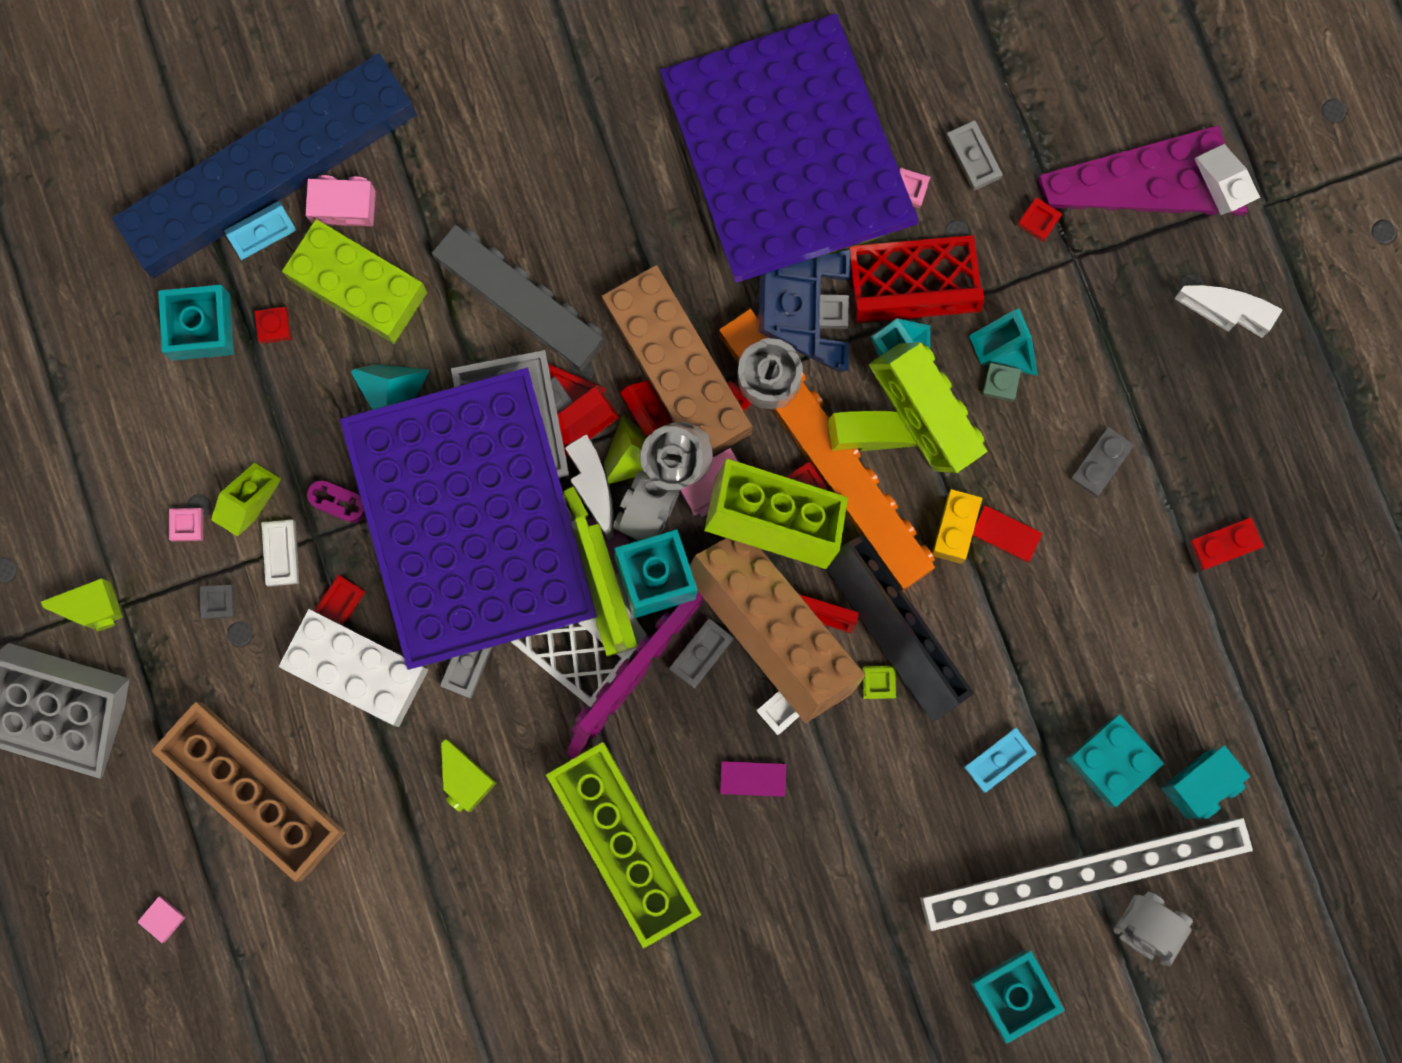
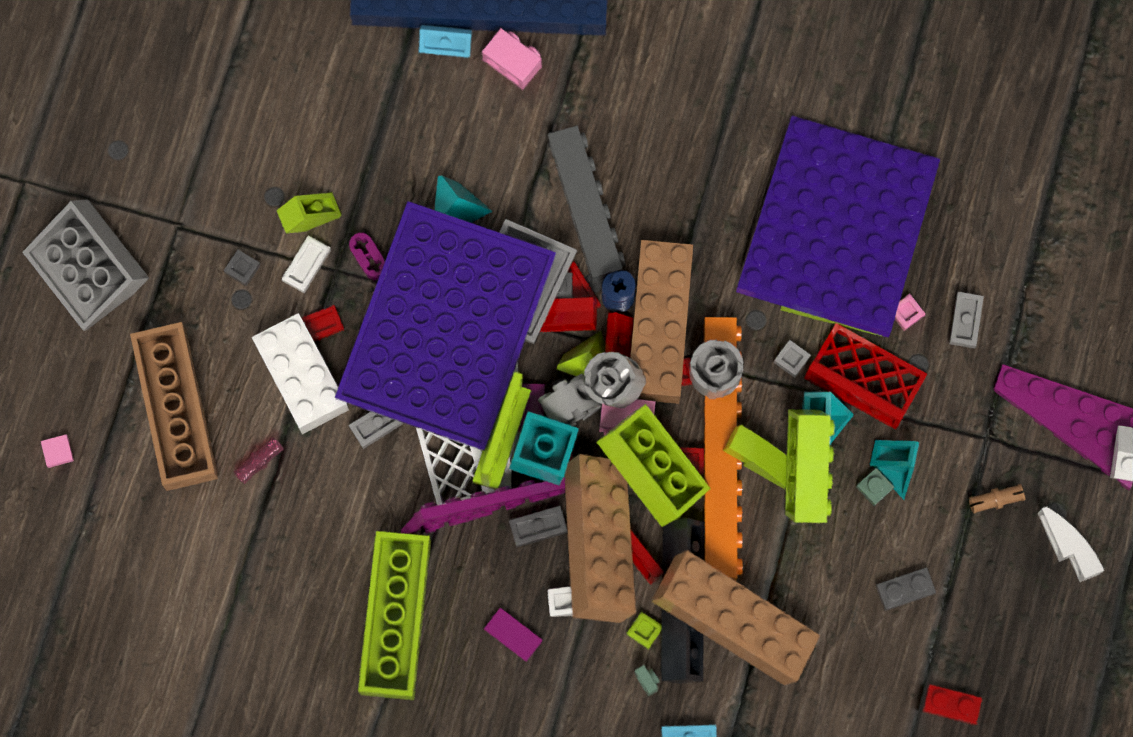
camera: 30 degrees right, 5 degrees down
(88, 605) = (157, 211): lime slope -> none
(186, 524) = (258, 202): bright pink tile -> none
(196, 322) = (359, 73): teal brick -> none
(273, 325) = (409, 110): red plate -> none
(355, 281) = (484, 118): lime brick -> none
(374, 785) = (258, 460): none -> clear pink pin
(463, 778) = (319, 497): lime slope -> none
(575, 503) = (525, 367): lime tile -> none
(592, 483) = (546, 361): white slope -> none
(613, 351) = (622, 300): none -> dark blue piece
(792, 307) = (764, 337): dark blue wing -> none
(917, 730) = (647, 680): none -> sand green plate
(956, 526) = (772, 561): yellow brick -> none
(964, 609) = (735, 618): none -> medium nougat brick
(1006, 534) = (804, 591): red tile -> none
(1039, 219) = (980, 394): red plate -> none
(1127, 311) = (996, 498): none -> medium nougat pin

